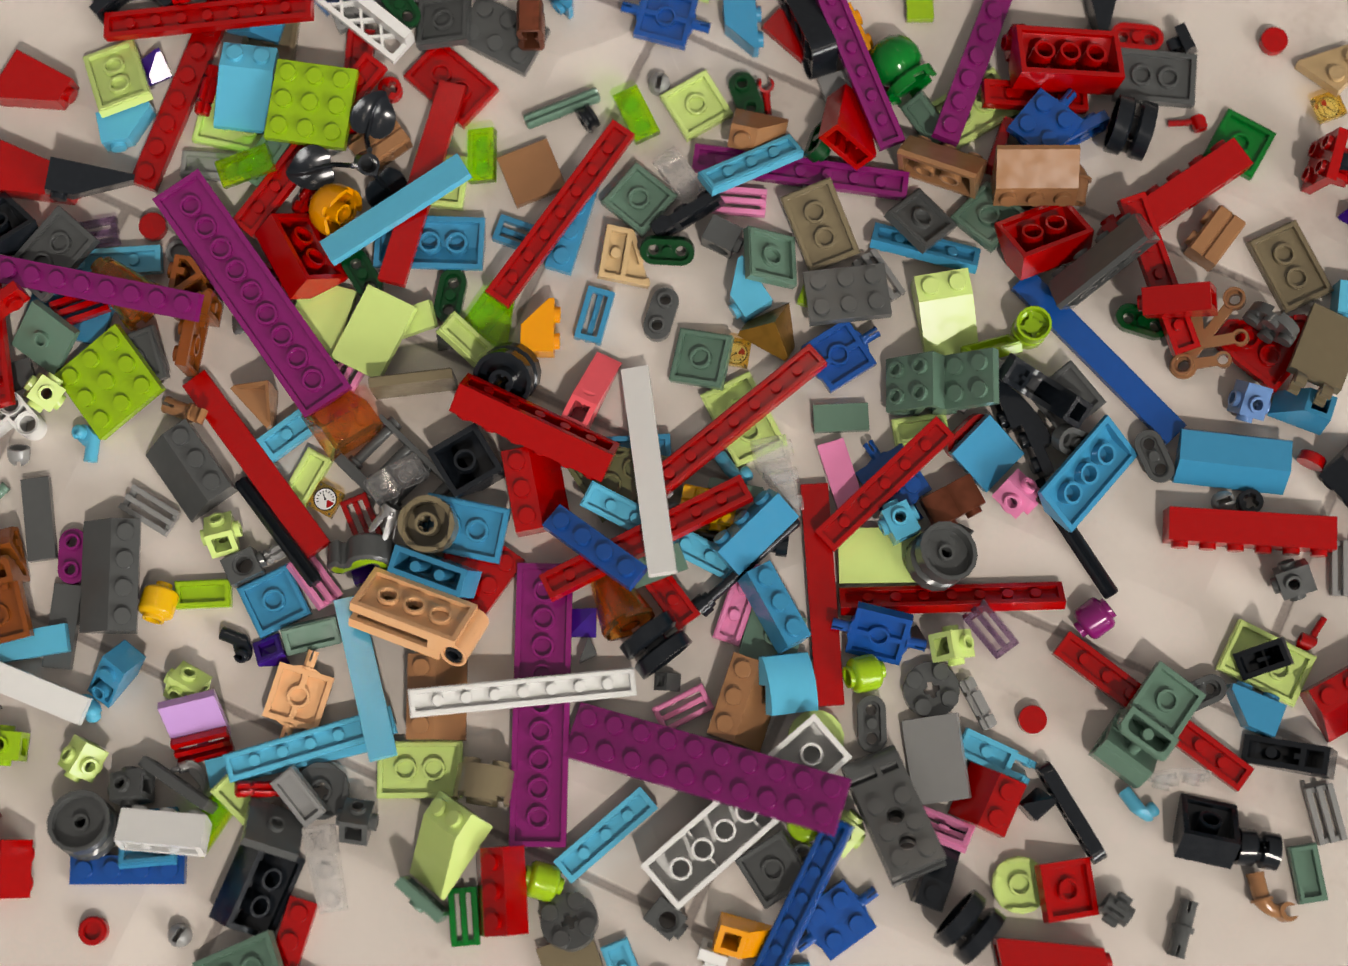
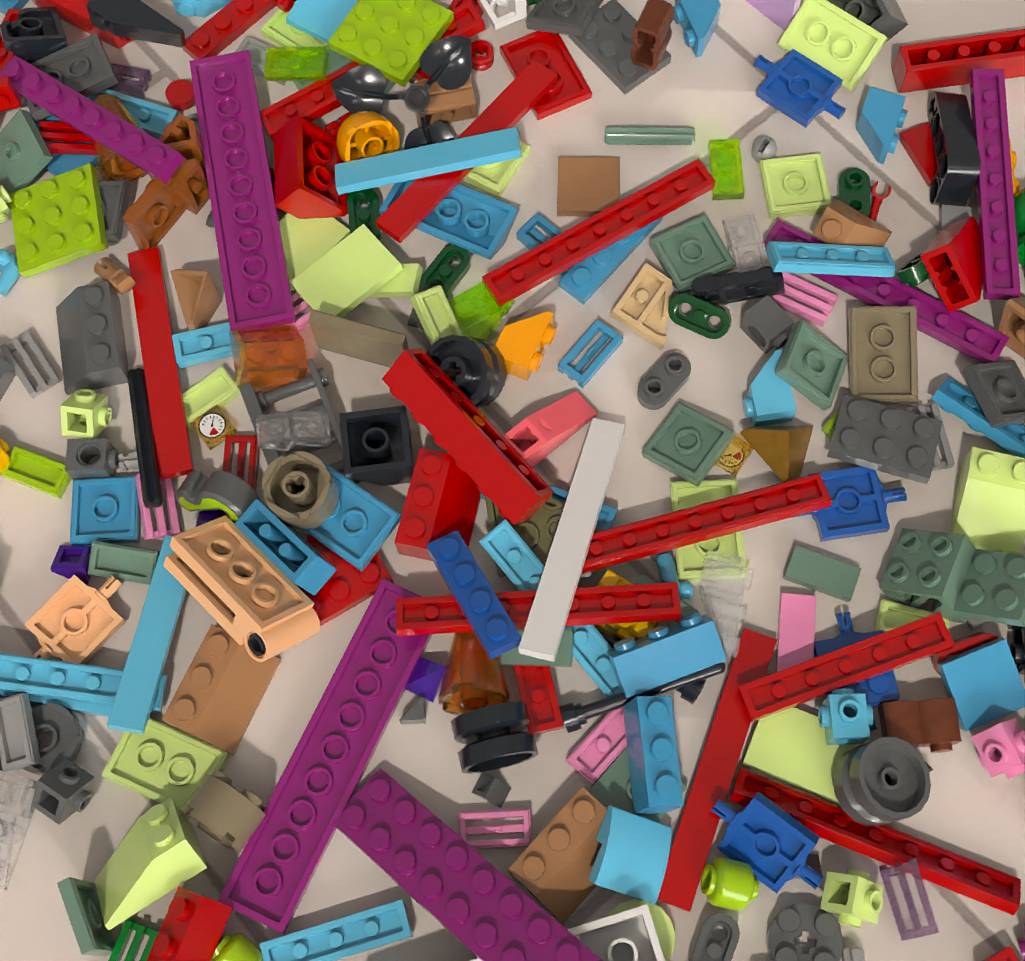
camera: 30 degrees right, 10 degrees down
(240, 643) = (47, 538): black arm -> none
(391, 512) = (264, 458): flat silver piece -> none
(482, 155) = (544, 149): clear neon green plate -> none
(521, 692) = (316, 725): white tile -> none
(587, 118) = (672, 154): black bush -> none

